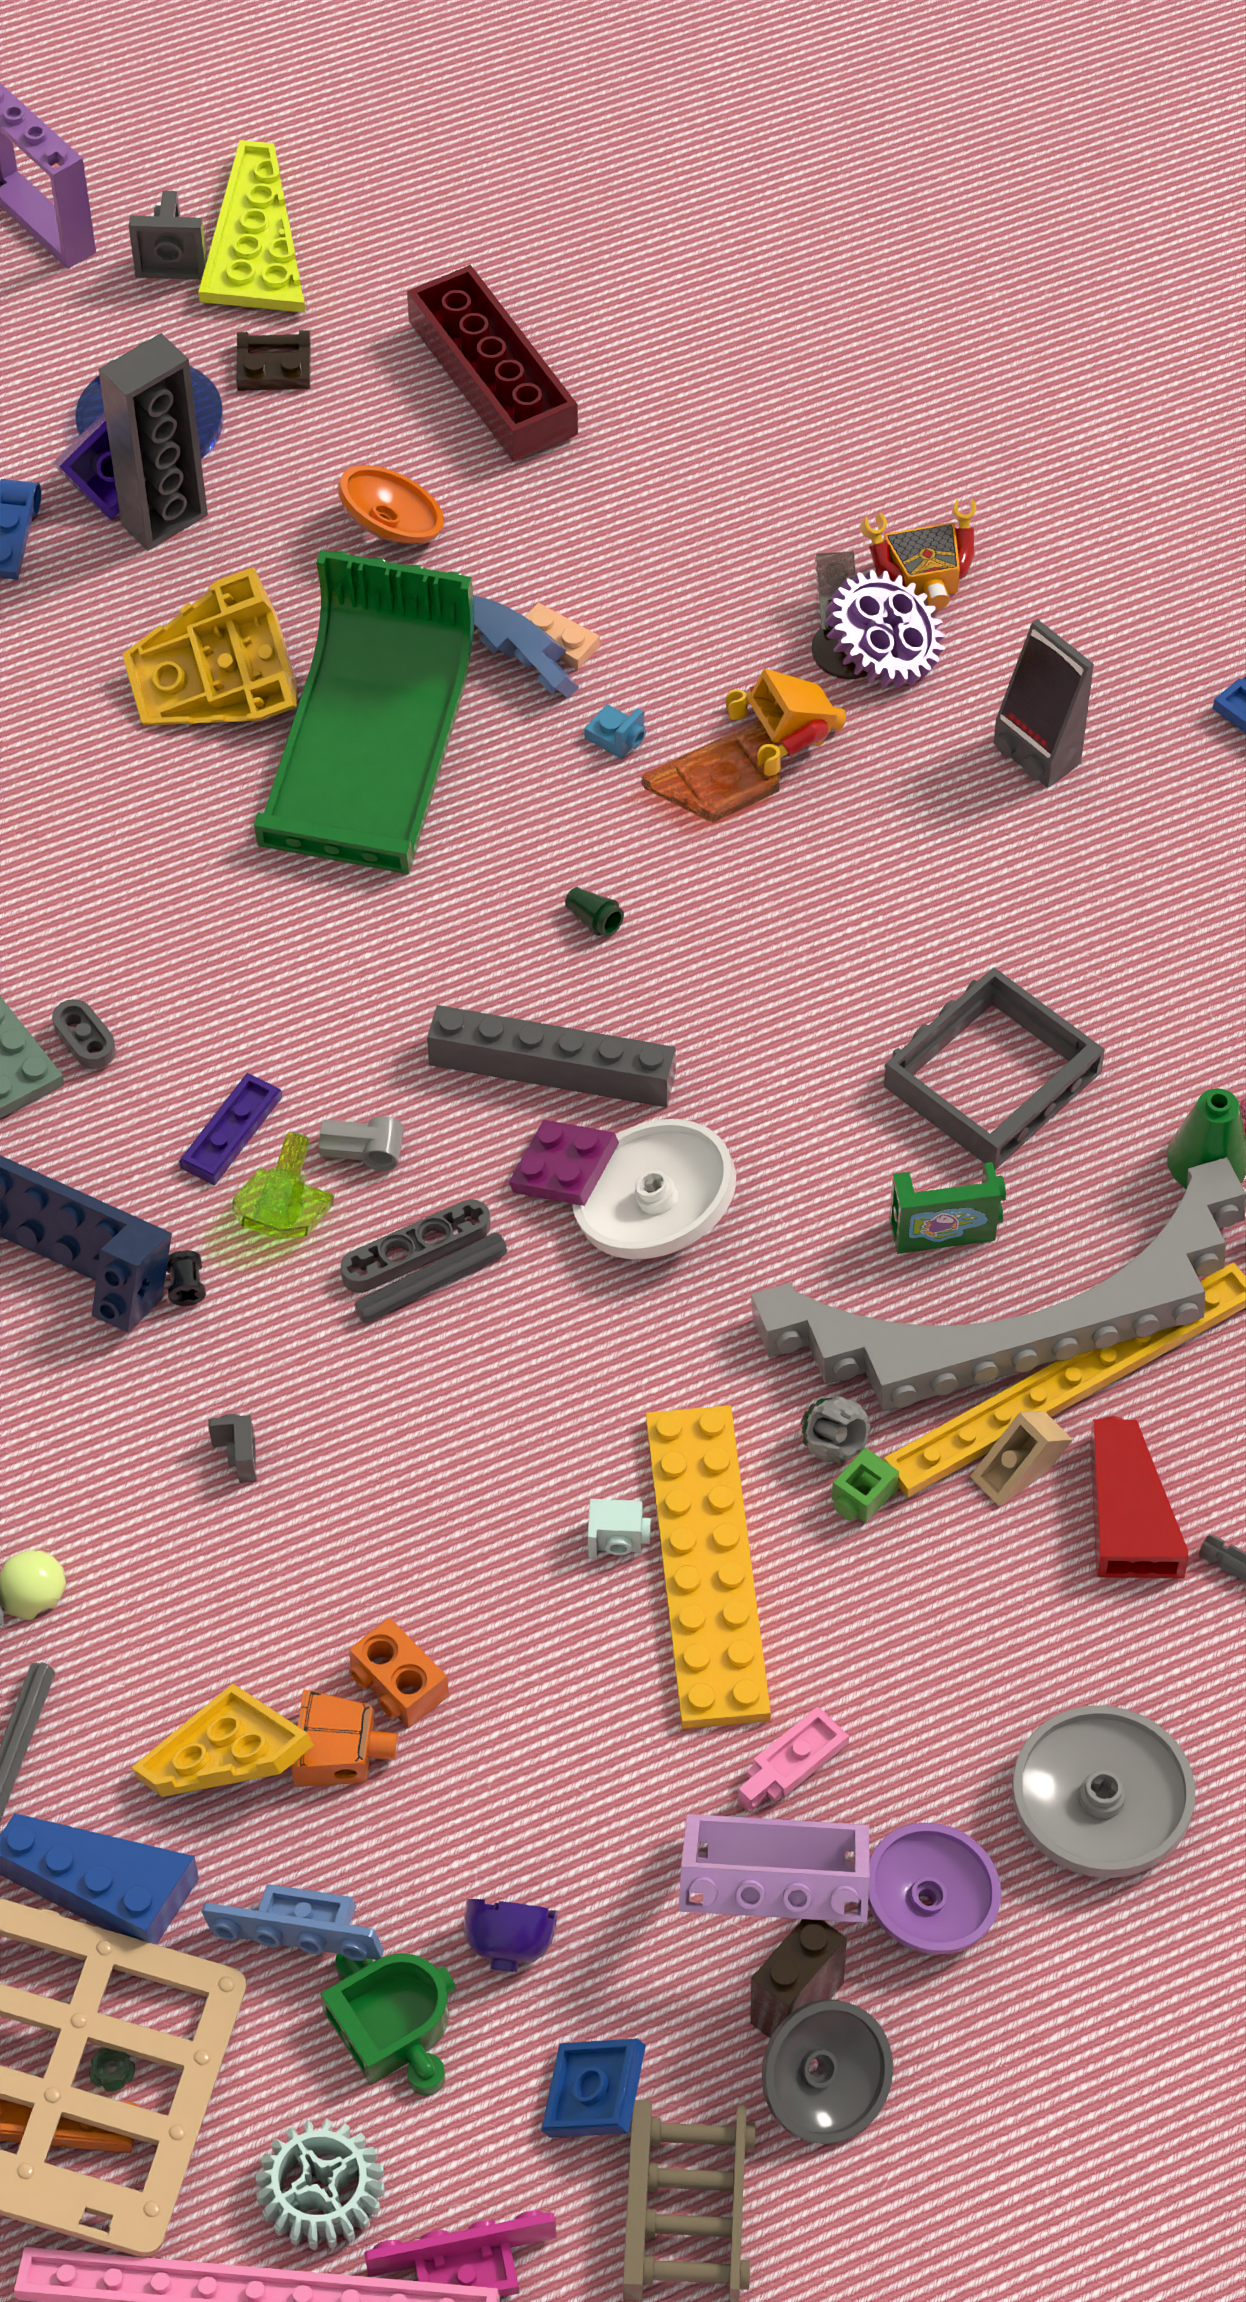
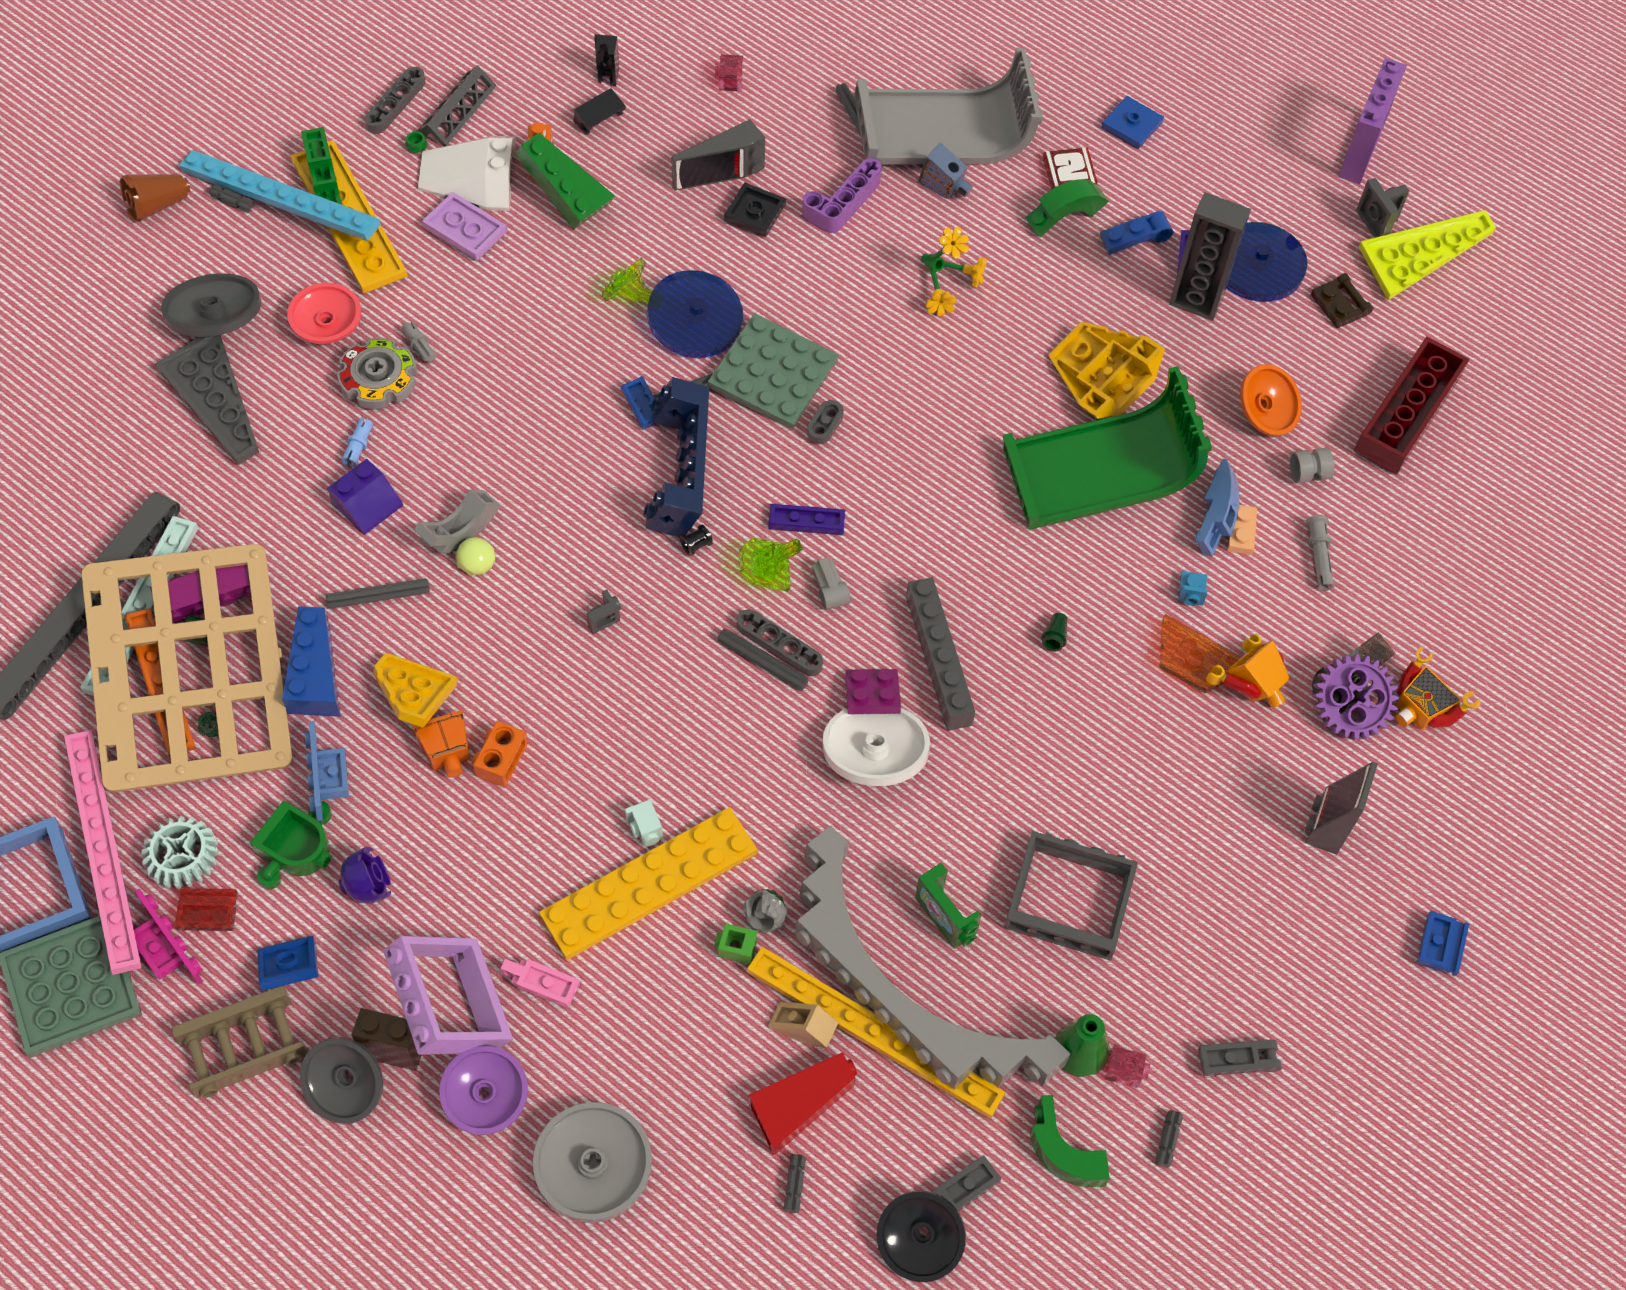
camera: 60 degrees right, 5 degrees up
(437, 2179) = (206, 909): none -> clear red plate
(514, 511) = (1307, 465): none -> light grey wheel
(631, 561) = (1320, 542): none -> light grey pin

